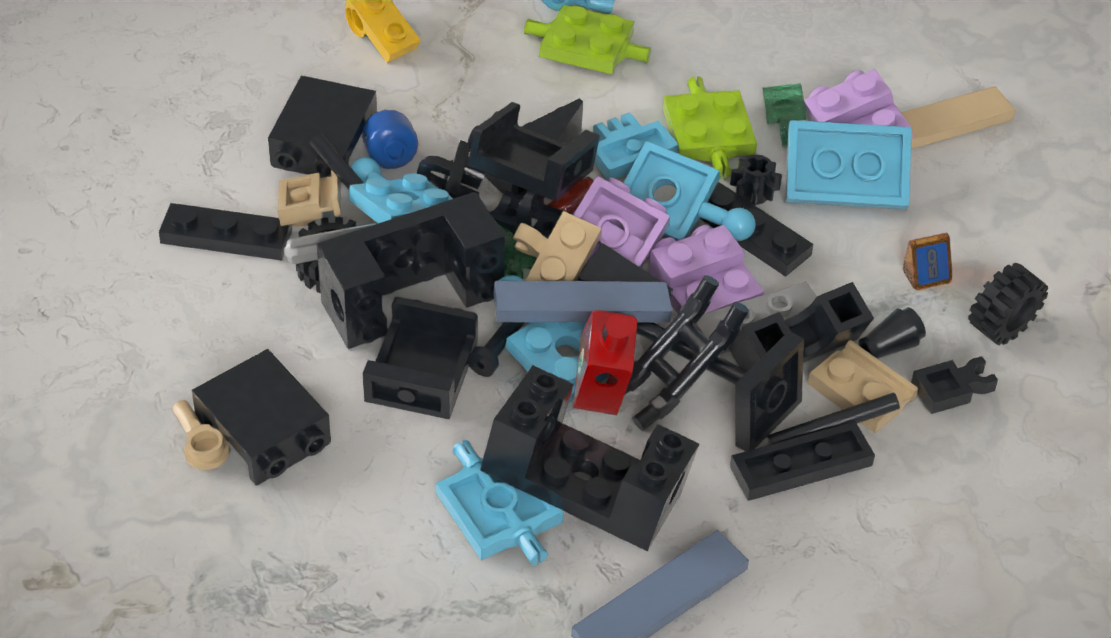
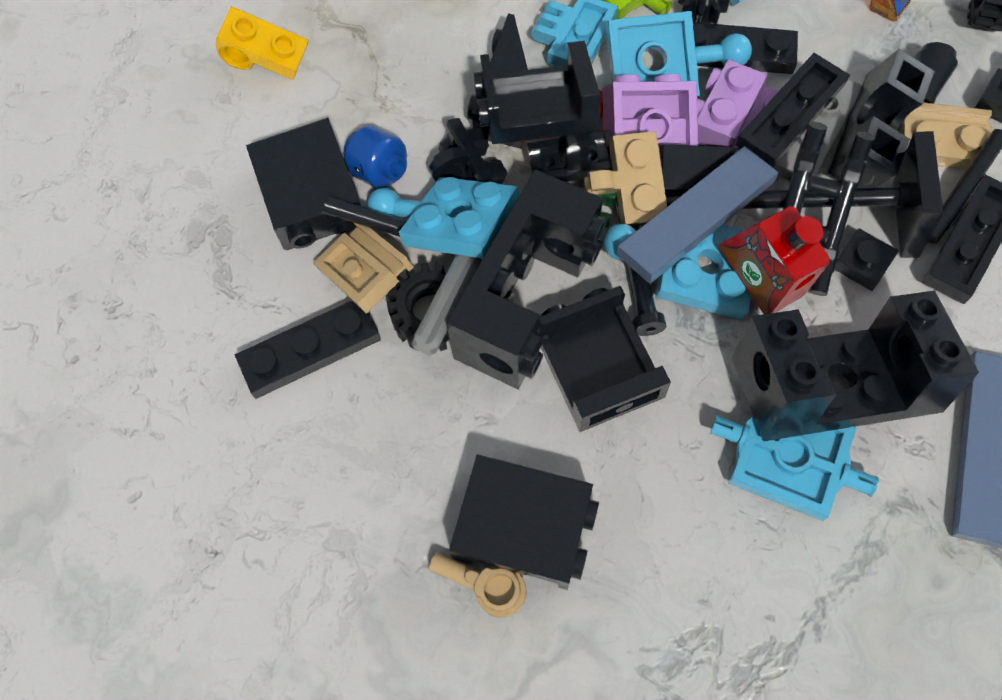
camera: 30 degrees left, 20 degrees up
(701, 423) = (865, 259): none -> black plate
(738, 280) = (793, 109): none -> black plate

